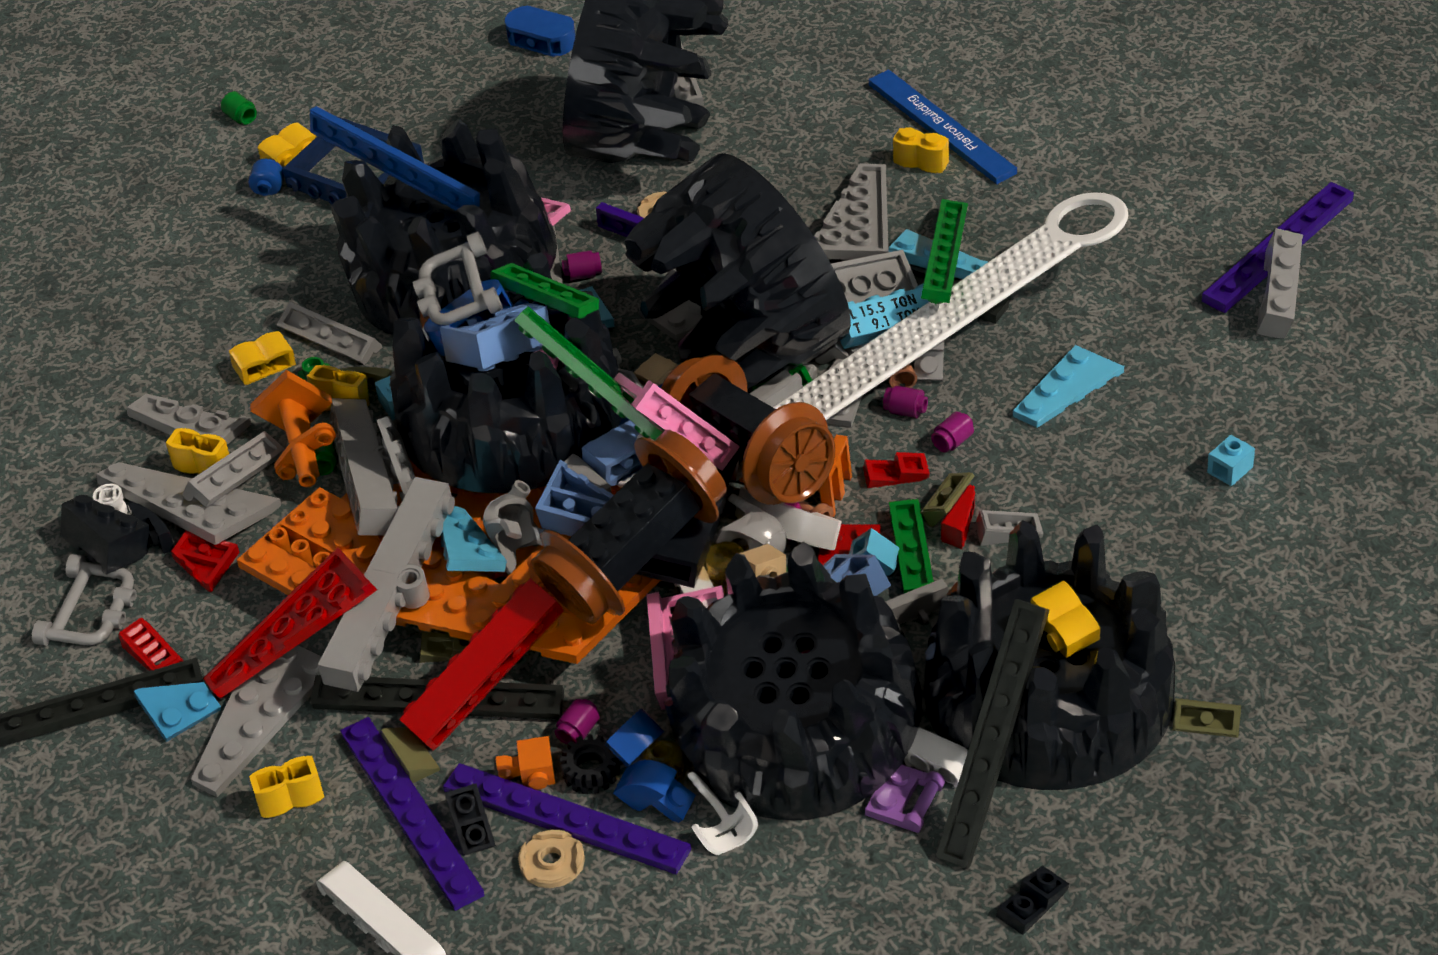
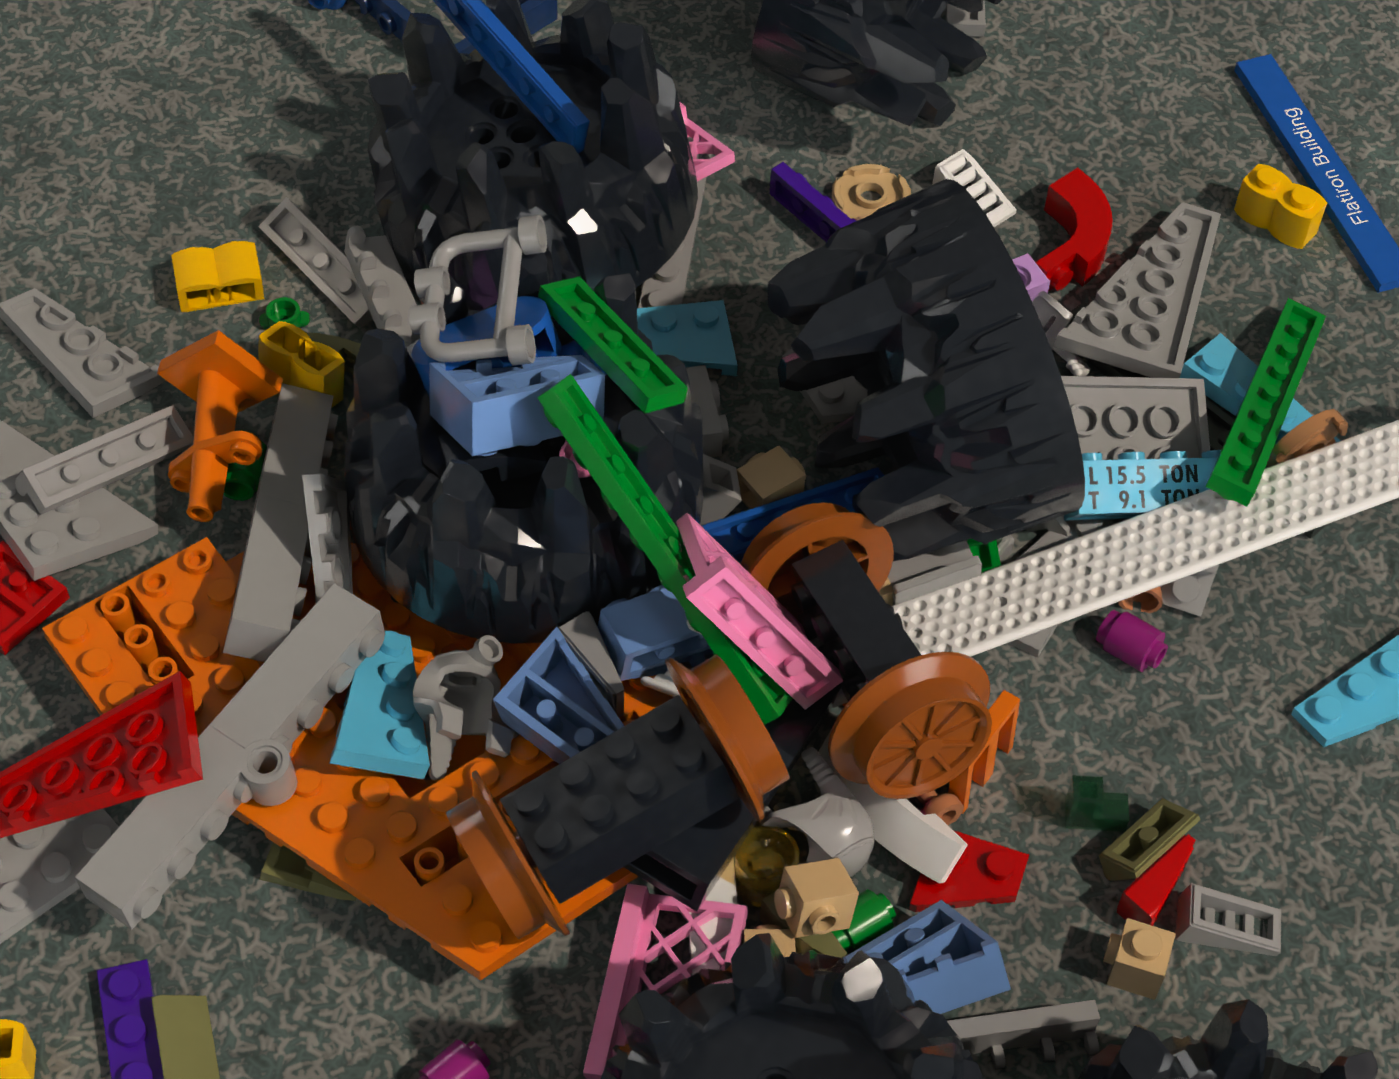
camera: 10 degrees right, 10 degrees up
(195, 452) = (61, 411): yellow brick -> none
(369, 330) = (380, 281): none -> light grey hinge
(395, 694) = (287, 970): pearl dark grey plate -> none
(481, 664) = (330, 941): red brick -> none
(581, 265) = (722, 256): magenta brick -> none
(803, 187) = (1087, 217): none -> red arch
(875, 544) = (1003, 913): medium azure brick -> none
(904, 469) = (1062, 756): red slope -> none
(907, 488) = (1092, 808): none -> clear green piece
(912, 544) = (1065, 915): green plate -> none
(952, 432) = (1189, 719): magenta brick -> none
(953, 551) = (1139, 958): none -> tan brick
(974, 259) = (1309, 436): none -> medium nougat tile

